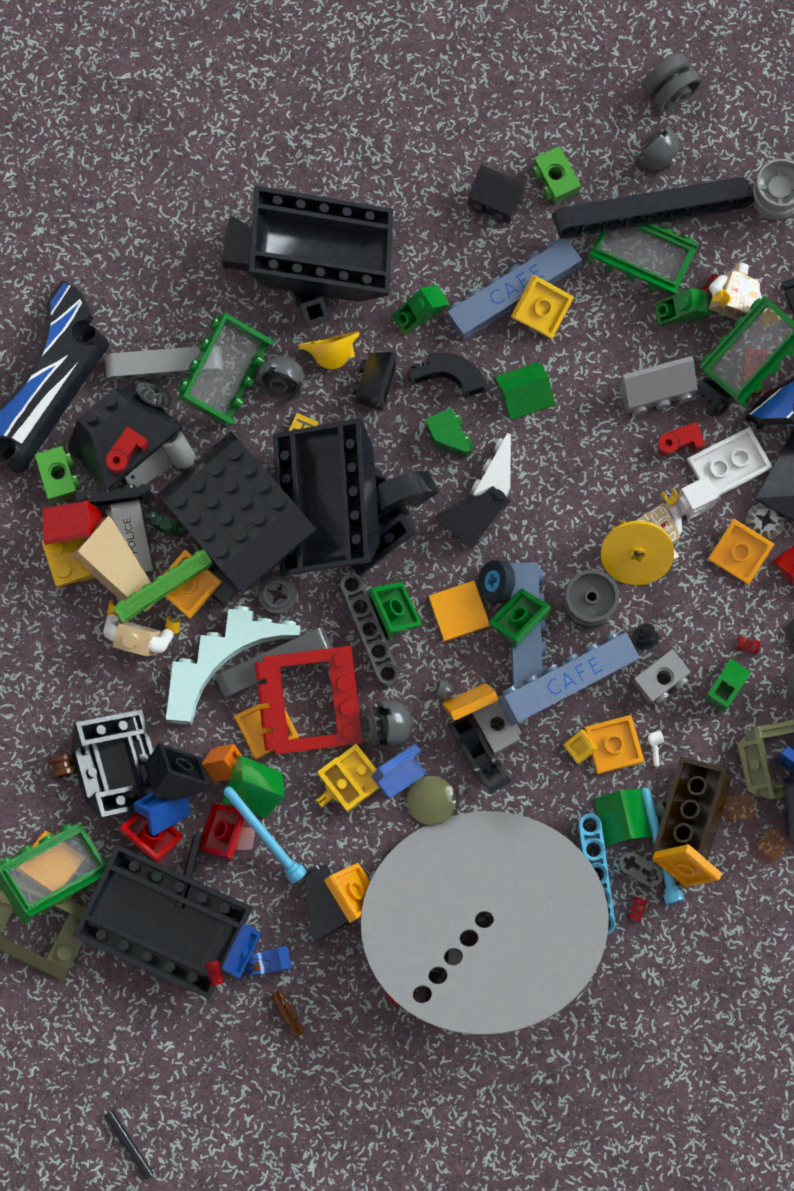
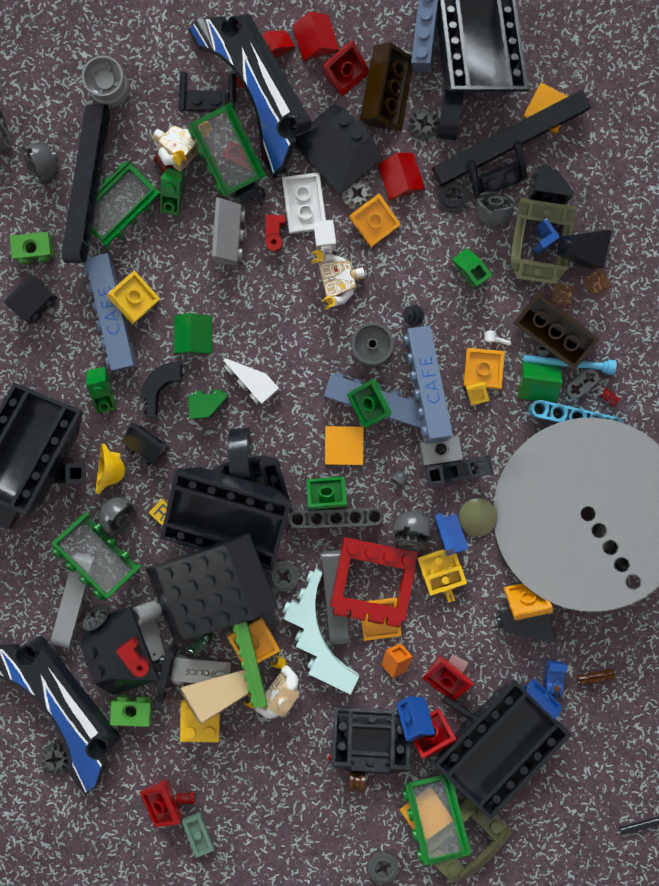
camera: 70 degrees left, 10 degrees up
(69, 522) = (174, 717): red slope -> none
(175, 773) = (395, 700): black slope -> none
(219, 974) = (562, 726): red piece -> none
(257, 786) = (423, 644): green slope -> none
(293, 870) = (494, 637): medium azure piece -> none
(470, 701) = (418, 463): light orange tile -> none
(475, 515) = (277, 408): black slope -> none
(500, 590) = (330, 403): black bush -> none
(649, 540) = (349, 284): yellow piece -> none
(669, 665) = (448, 326): light grey brick -> none
(687, 866) = (597, 349): light orange tile -> none
(740, 643) = (447, 246): red piece -> none

